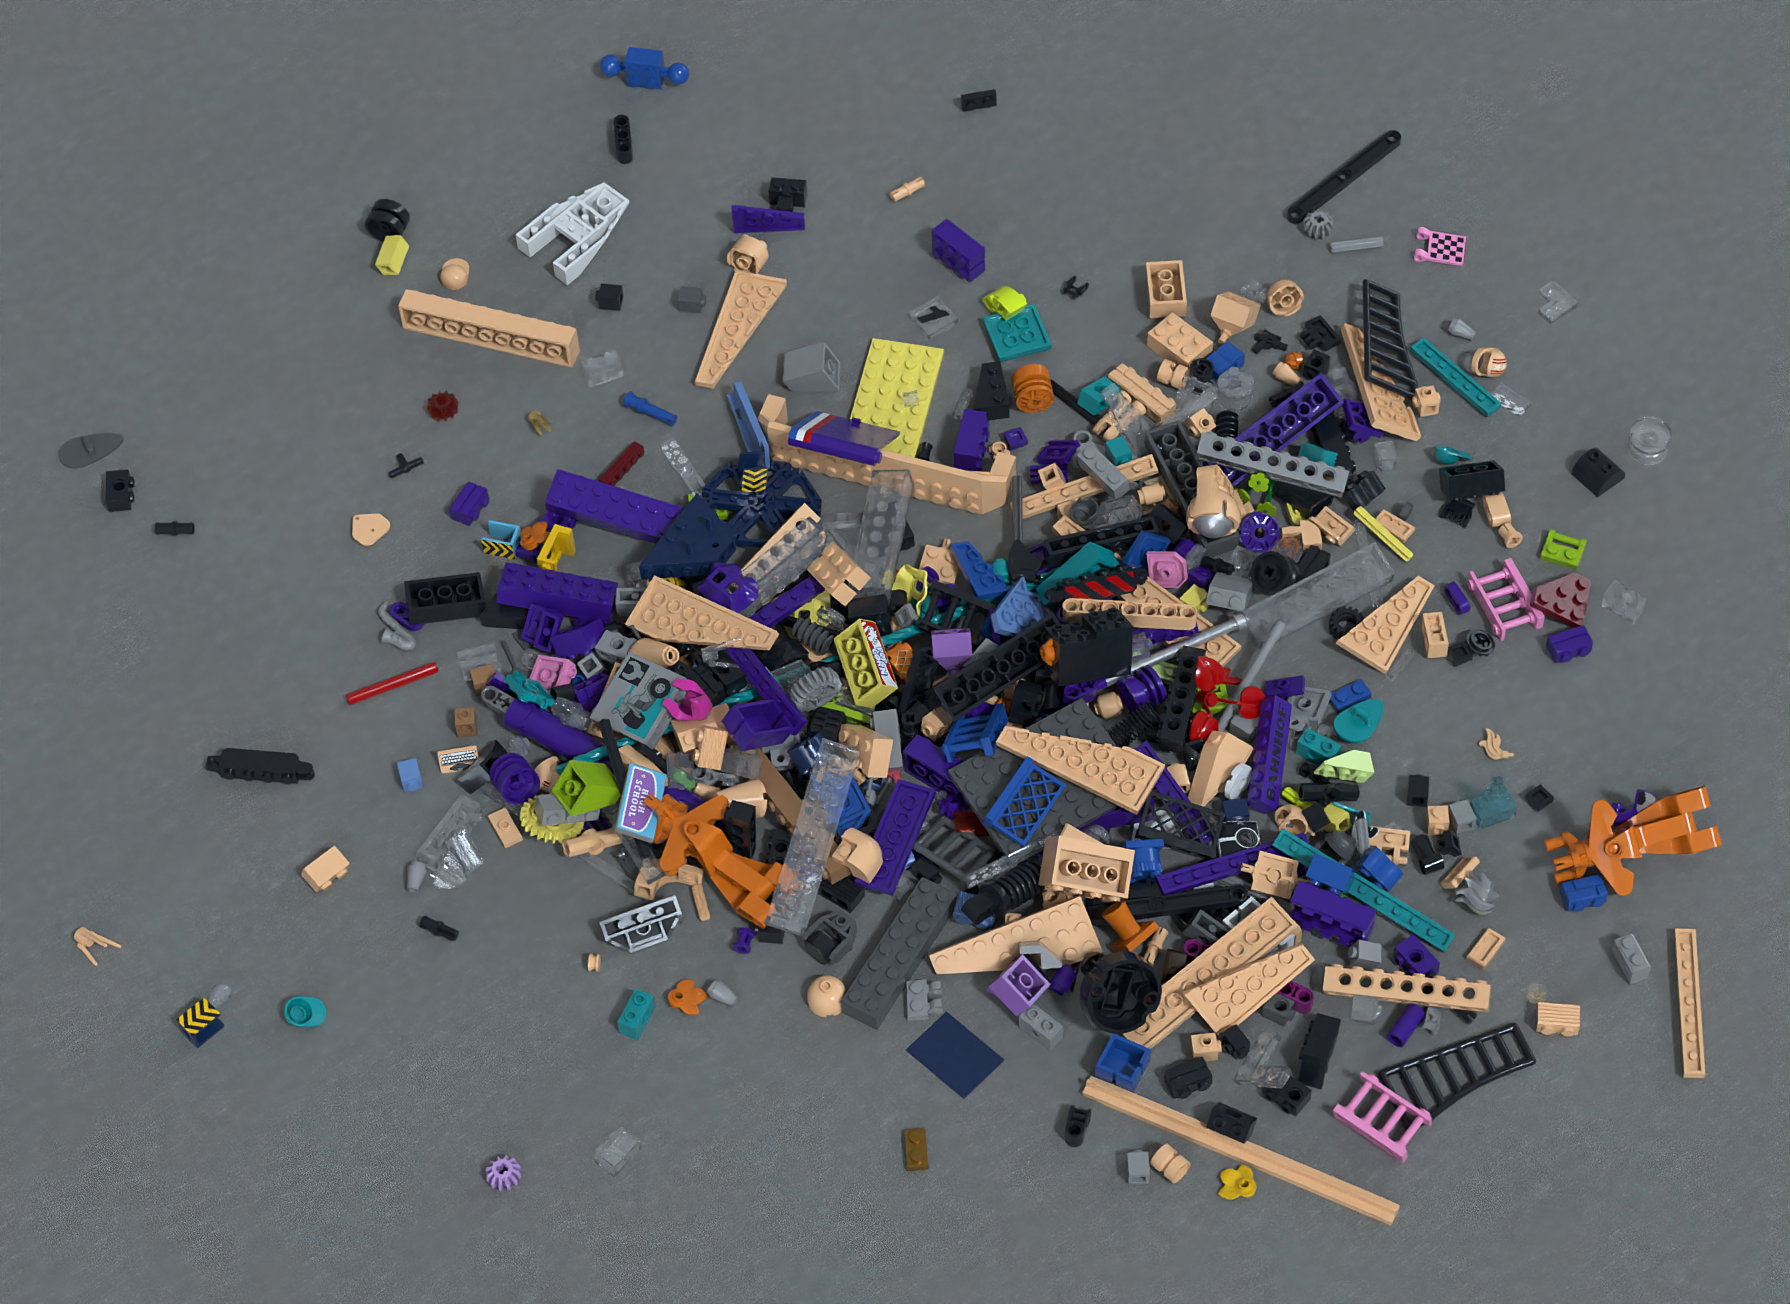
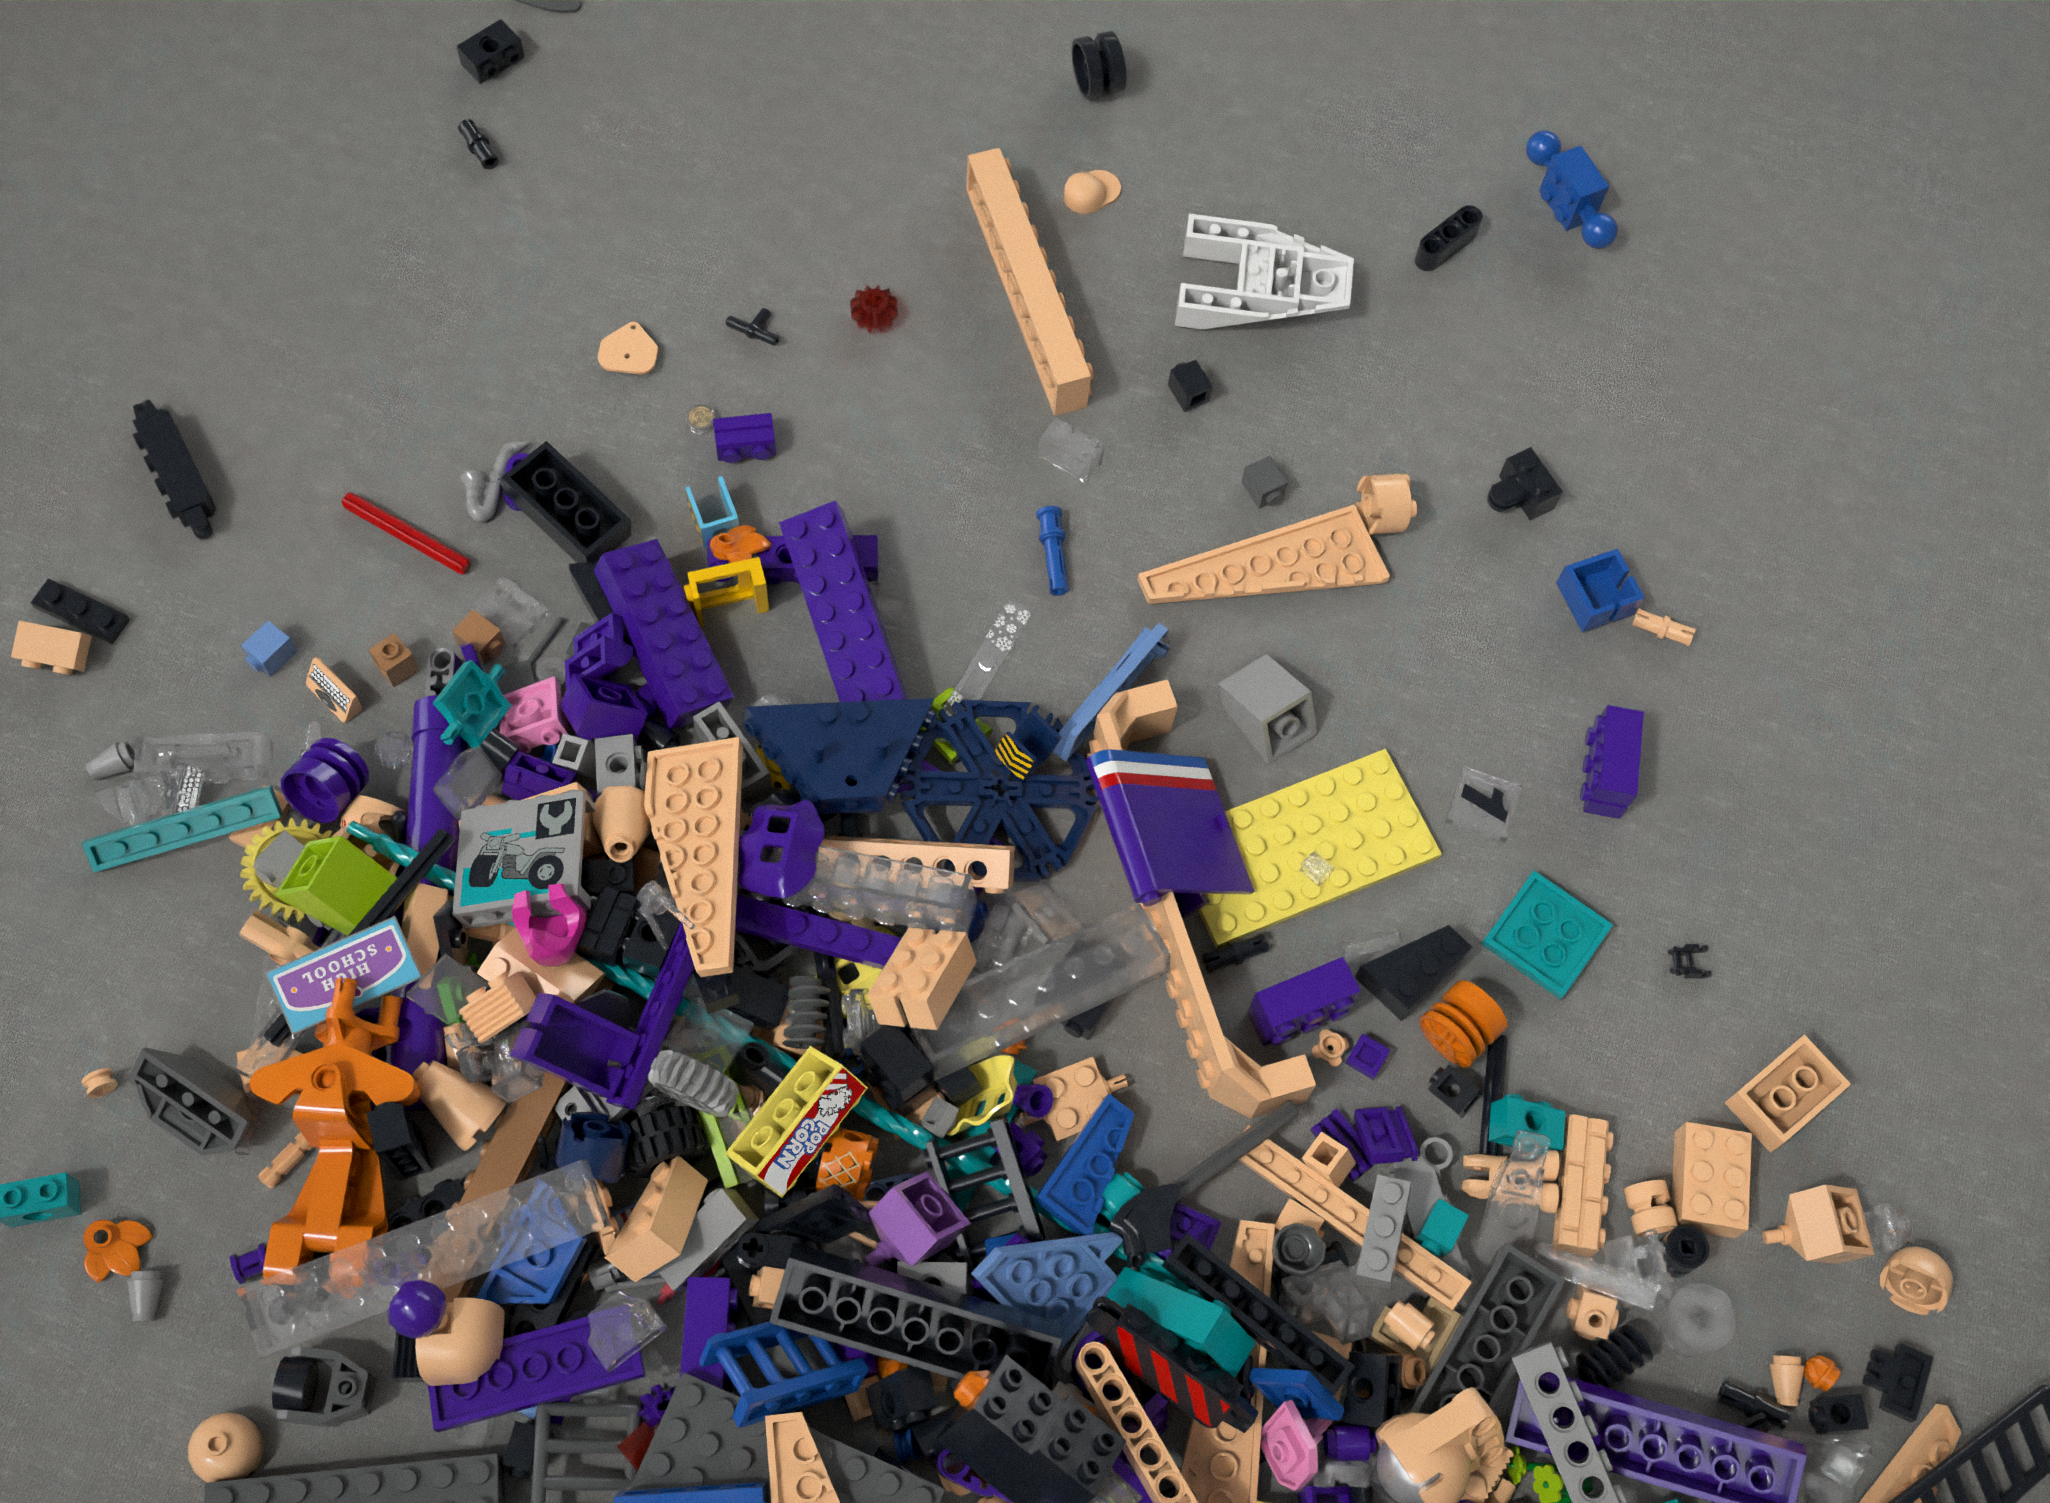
camera: 45 degrees right, 10 degrees up
(308, 852) = (80, 611): none -> black plate
(392, 255) = (1057, 104): light yellow brick -> none
(439, 519) = (700, 419): none -> tile
(439, 928) = (45, 845): black axle -> none
(479, 771) = (352, 728): black slope -> none
(485, 858) = (182, 828): none -> teal plate
(536, 418) = (936, 425): pearl gold piece -> none
(623, 464) = (938, 576): dark red piece -> none
(765, 220) = (1458, 483): dark purple wing -> none
(837, 848) = (417, 1309): none -> dark purple hair
(864, 204) = (1593, 592): none -> blue piece
(908, 784) = (622, 1328): none -> clear slope
(978, 100) = (1885, 618): black plate -> none
(1005, 302) = (1580, 883): neon yellow brick -> none
(1059, 408) = (1447, 1077): none -> black brick
(1225, 358) = (1736, 1268): blue brick -> none
(1267, 341) = (1824, 1305): black piece -> none

